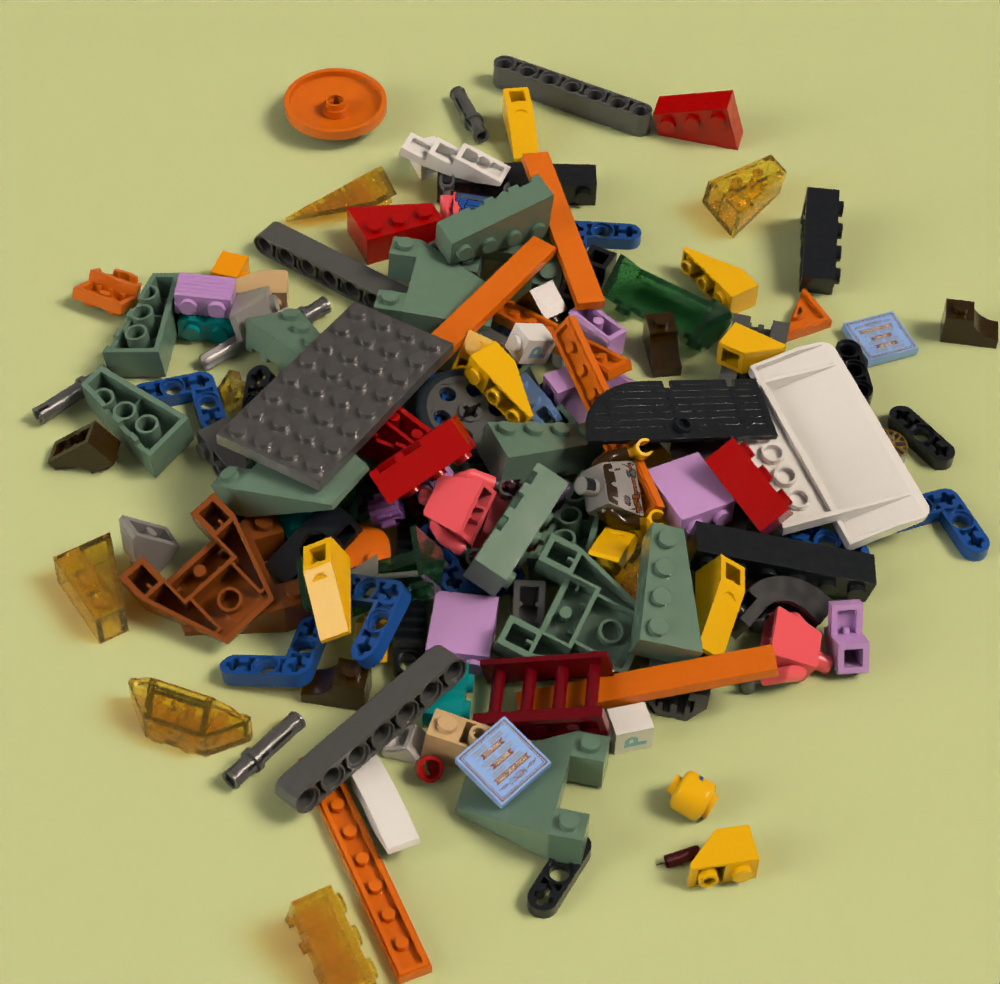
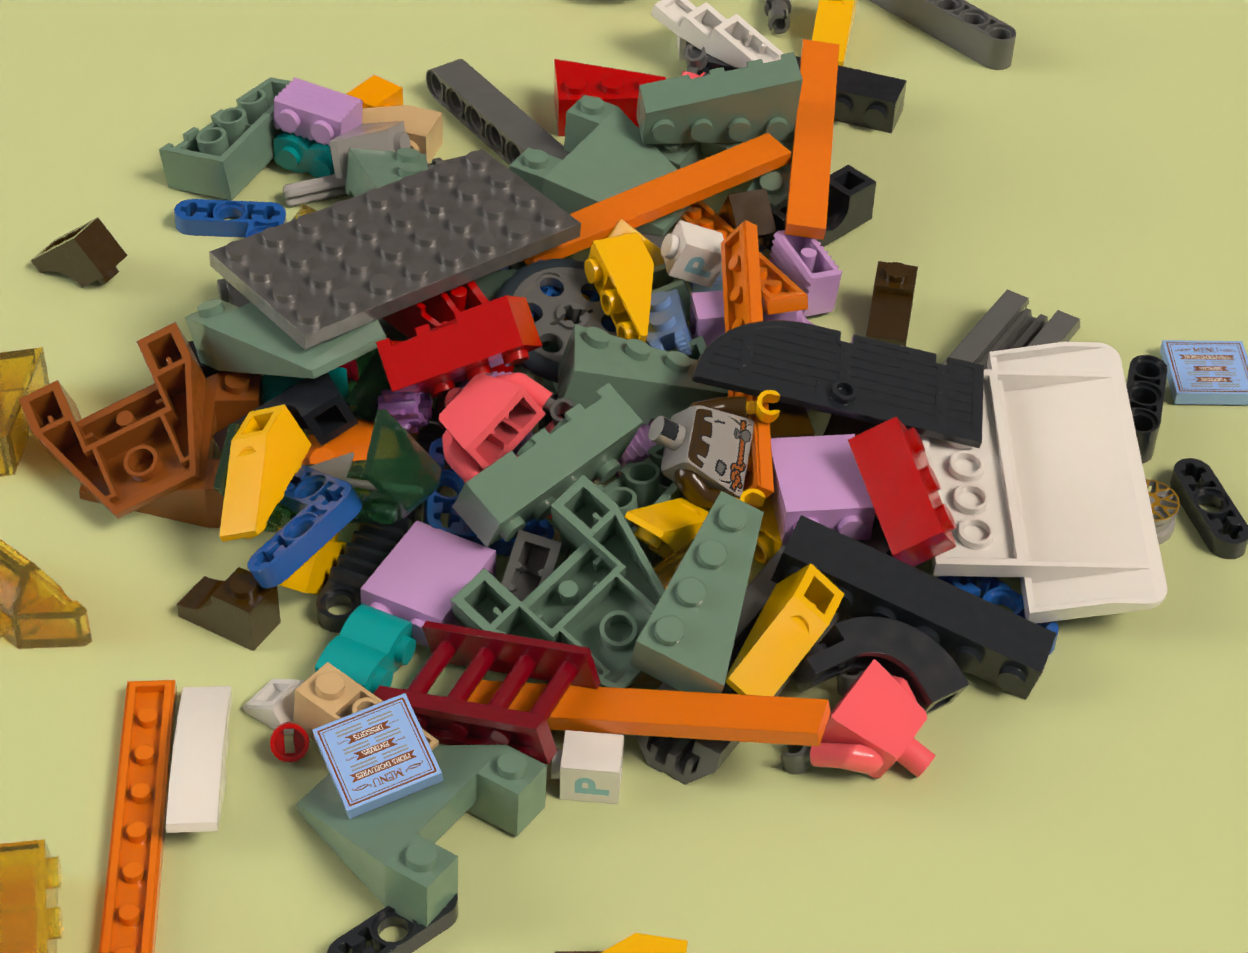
camera: 20 degrees right, 5 degrees down
(60, 401) = (122, 189): dark grey pin -> none
(109, 291) = (212, 89): orange slope -> none
(139, 420) = (164, 236): sand green wedge -> none
(147, 540) = (83, 370): light grey slope -> none
(246, 669) = (166, 567): blue beam -> none
(254, 758) = (73, 664): dark grey pin -> none
(367, 190) = (592, 45): clear yellow wedge -> none
(370, 729) = (208, 670): dark grey beam -> none
(589, 230) = (900, 170): blue beam -> none
(644, 293) = (947, 283): clear green windscreen -> none
(692, 795) = (633, 881): yellow head -> none
(700, 118) = (1080, 60): red wedge -> none
(720, 280) = (1014, 253): yellow slope -> none
(744, 193) = (1096, 155): clear yellow wedge -> none
(746, 347) = (992, 326): yellow slope -> none
(807, 317) = (1116, 323): orange tile -> none
(819, 240) = (1173, 231): black wedge -> none
(845, 637) = (965, 731): lavender brick -> none
(956, 512) = (1201, 615): blue beam -> none

